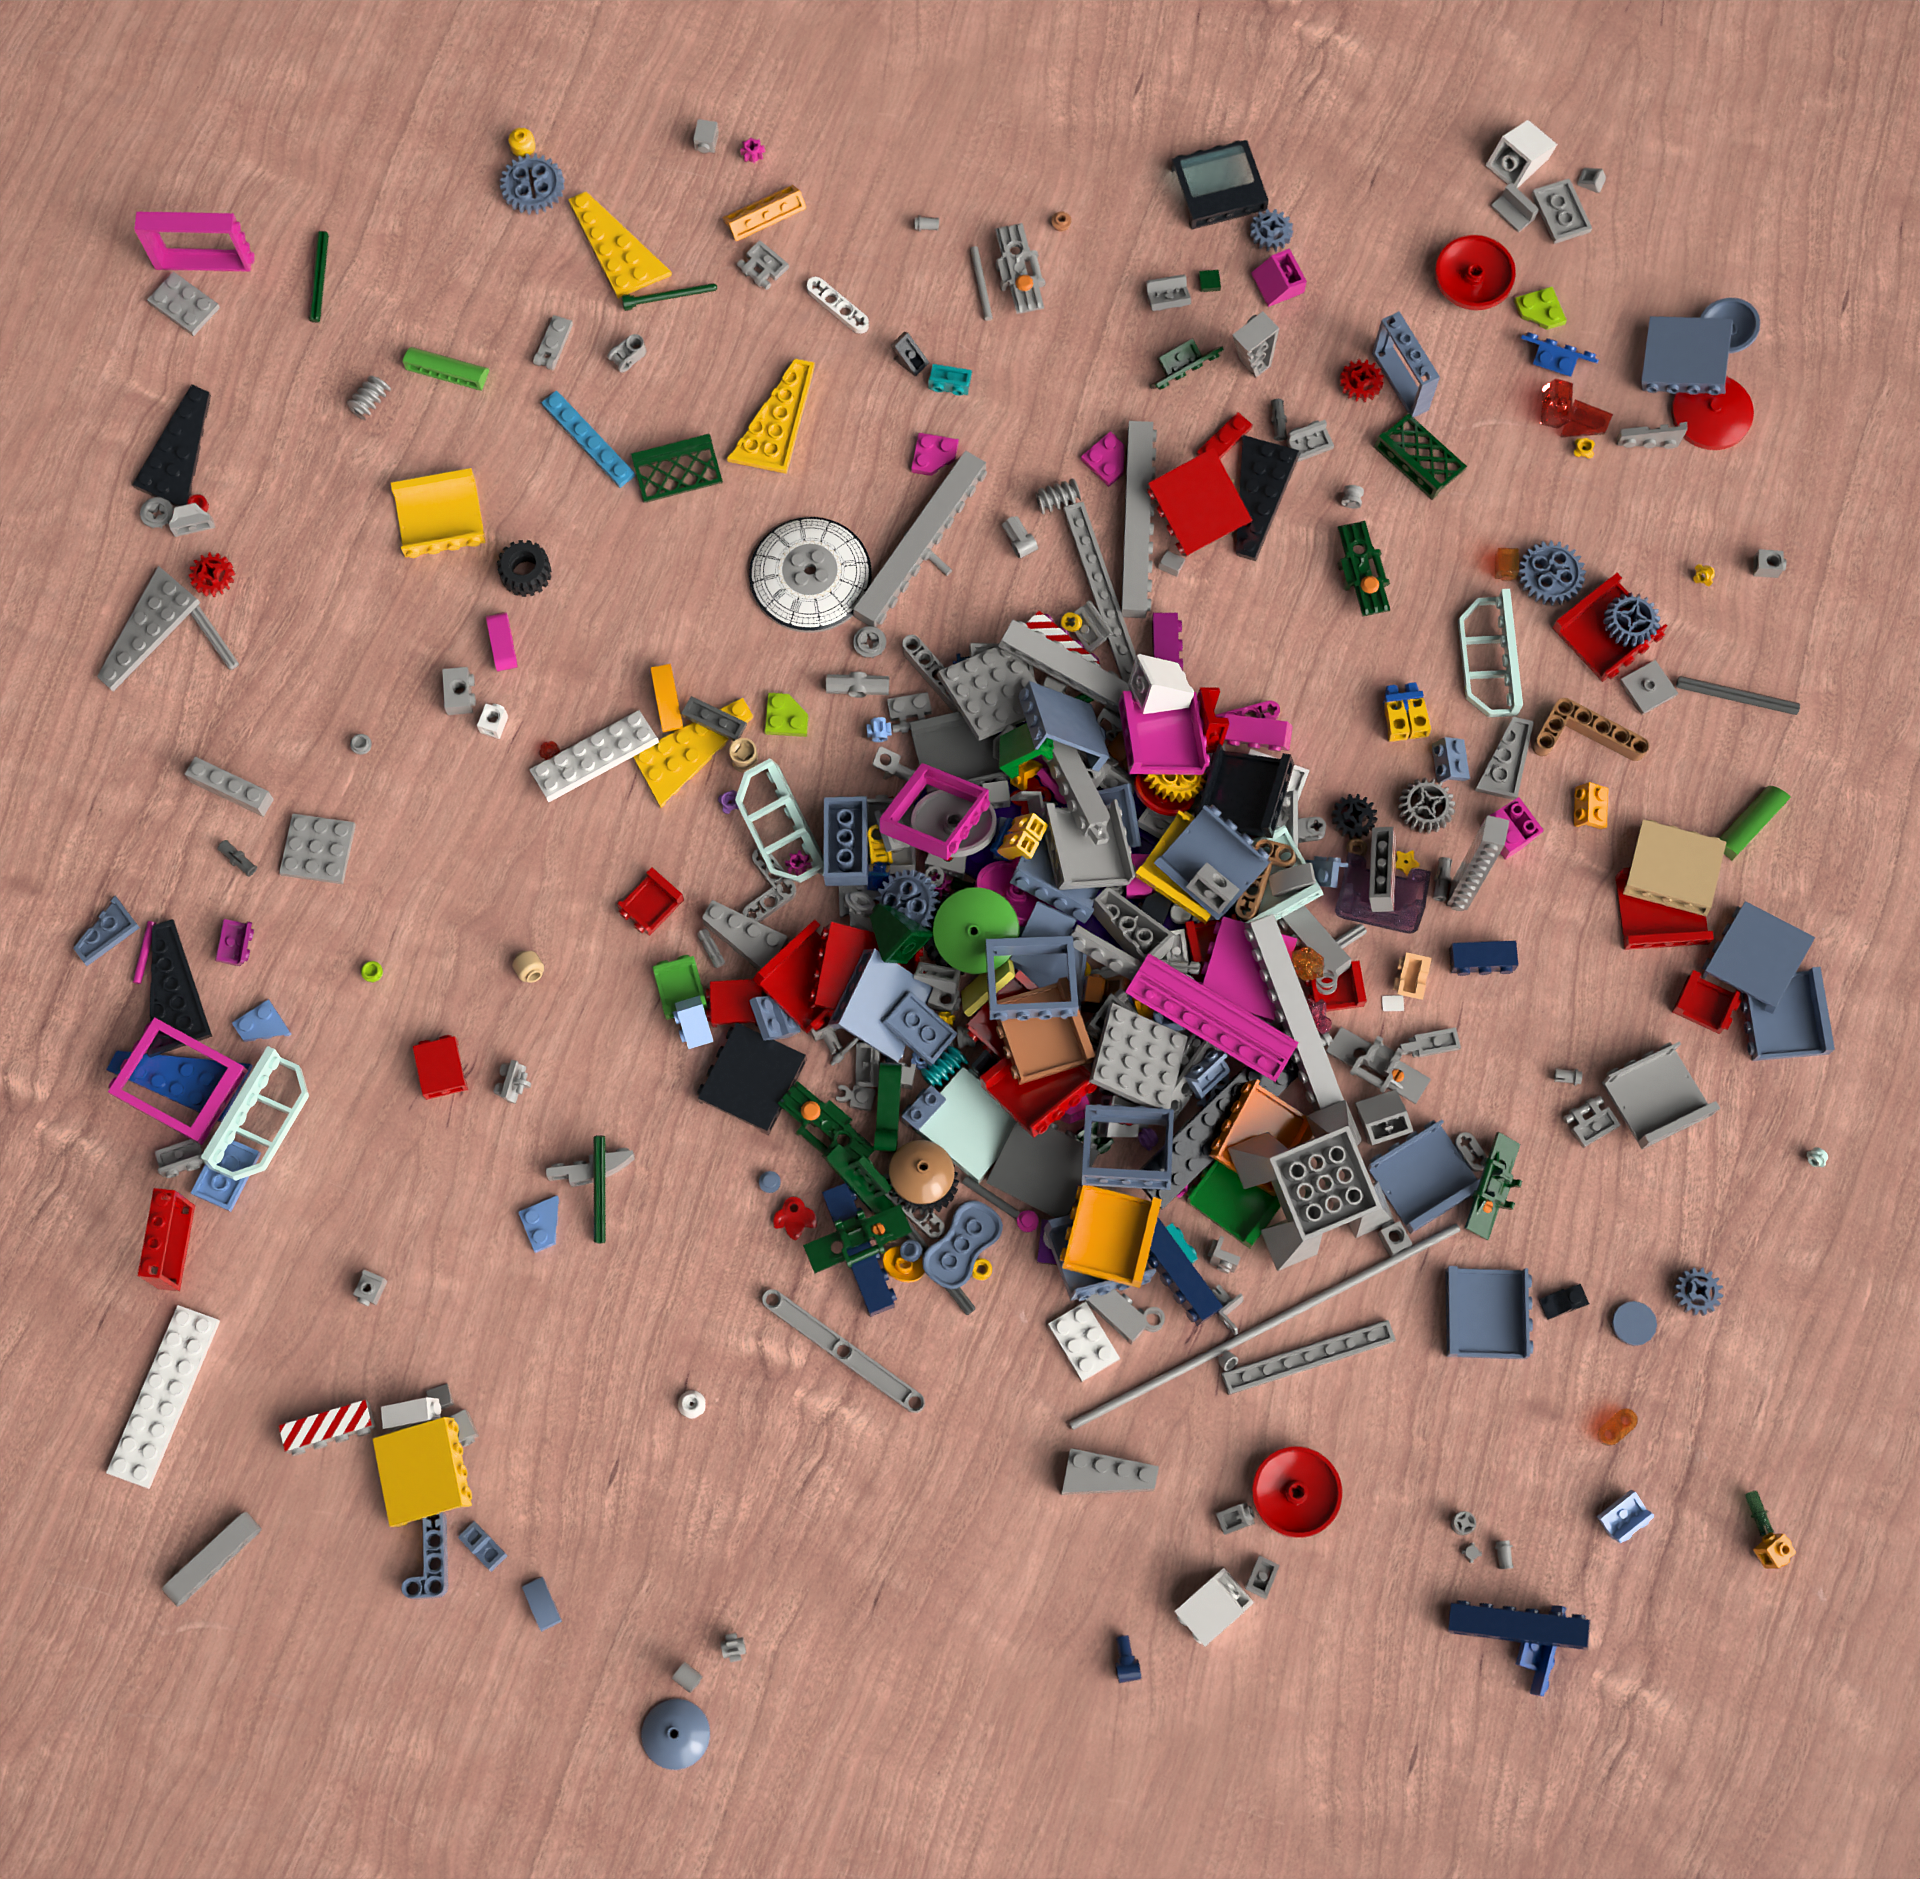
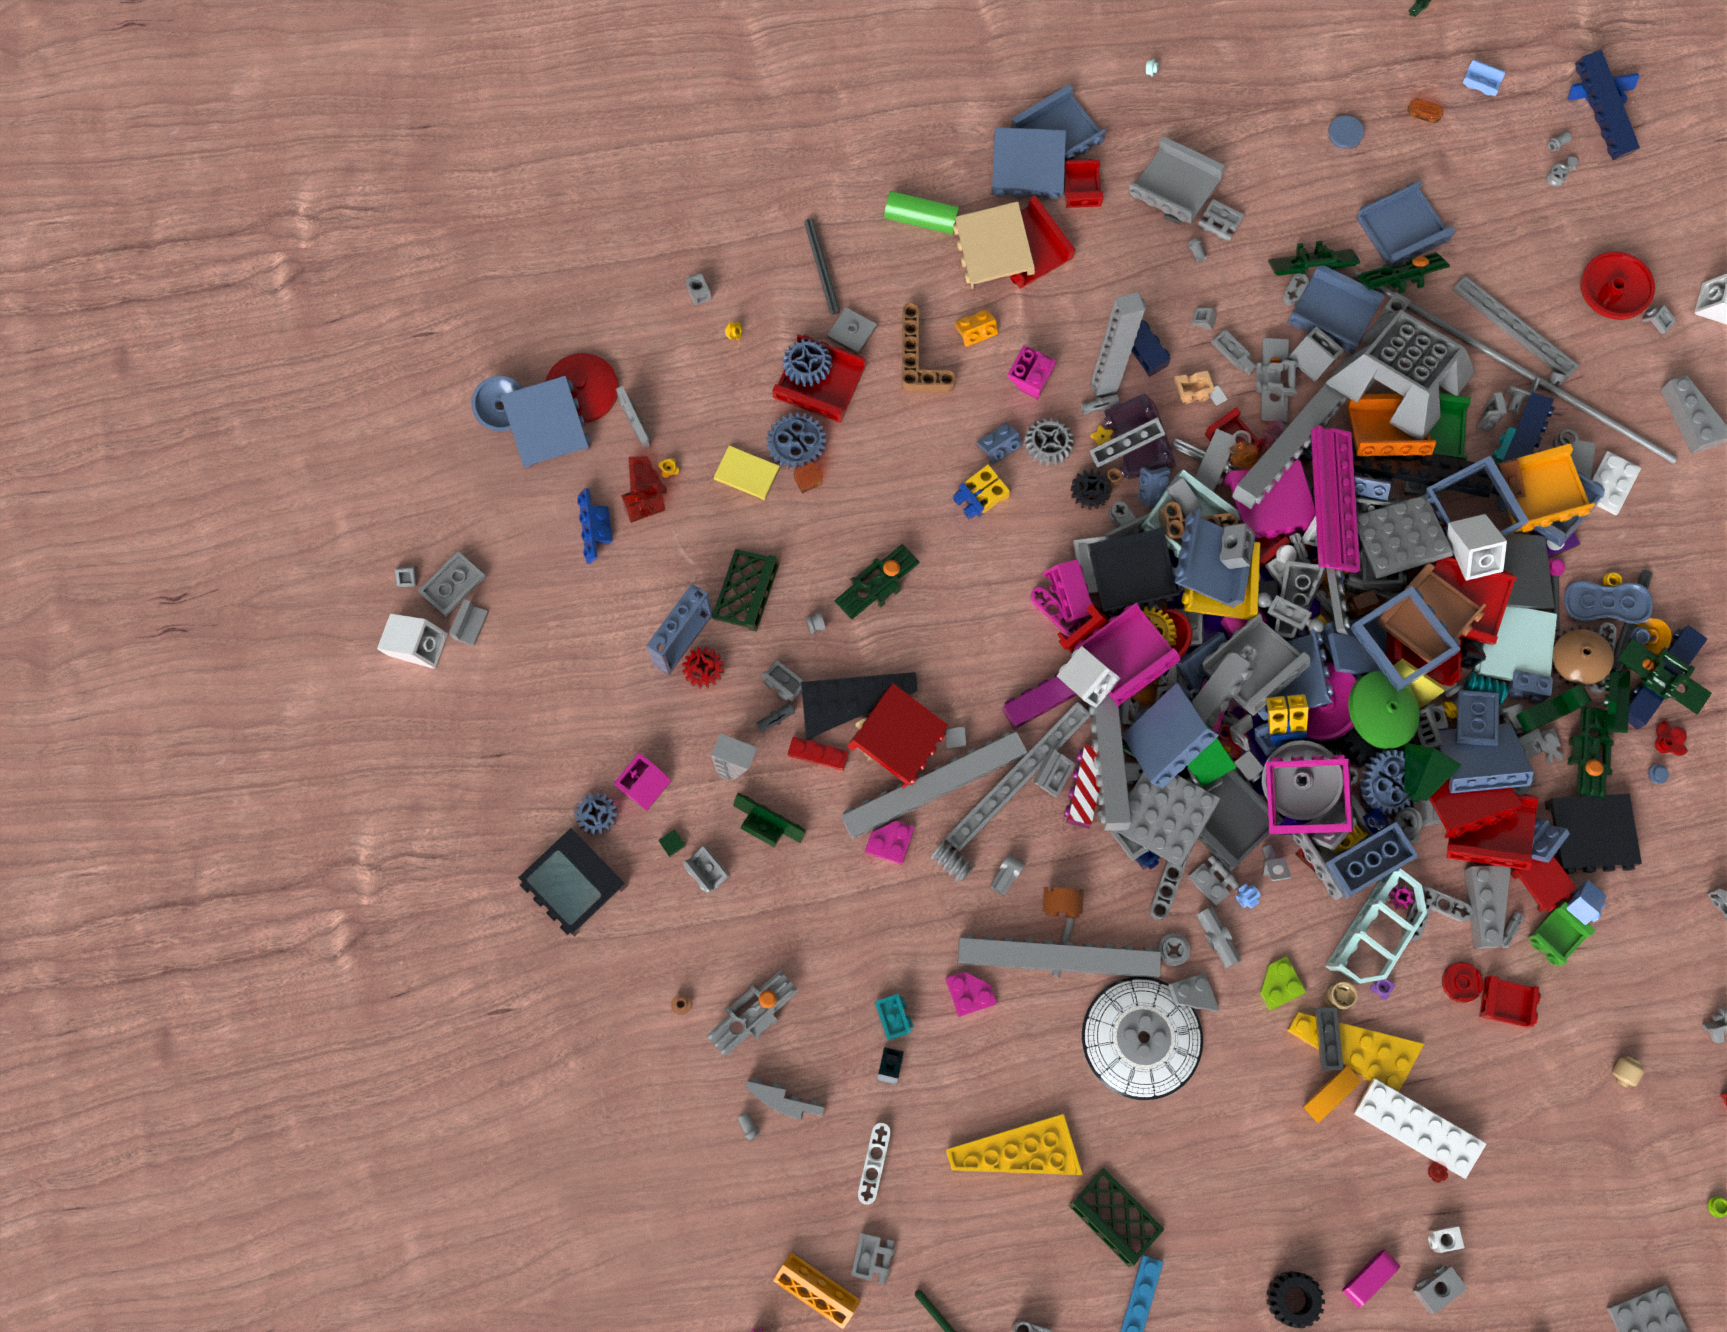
camera: 120 degrees left, 0 degrees up
(692, 875) = (1462, 982): none -> red tile
(821, 635) = (1194, 993): none -> light grey wing
(936, 254) = (775, 1096): none -> light grey slope
(967, 565) = (1063, 901): none -> dark orange brick
(981, 283) = (781, 1043): light grey bar -> none
(1078, 622) = (1064, 785): yellow bush -> none
(1085, 1103) = (1477, 546): none -> white slope
(1120, 903) = (1289, 612): none -> light grey plate
(1136, 1200) = (1512, 474): none -> dark orange plate
(1182, 949) = (1286, 553): none -> white tile
(1262, 1577) = (1692, 279): light grey slope -> none
(1429, 1265) = (1398, 276): none -> dark green piece
(1475, 272) = (552, 623): red dish -> none
(1485, 1040) = (1204, 318): none -> light grey slope
(1506, 767) = (980, 400): light grey wing -> none
(1509, 658) = (881, 440): light aqua plate -> none
(1541, 308) = (554, 559): lime plate -> none
(1542, 515) = (746, 472): none -> light yellow tile
(1563, 1301) = (1362, 182): black slope -> none
(1692, 1283) = (1292, 94): sand blue gear -> none

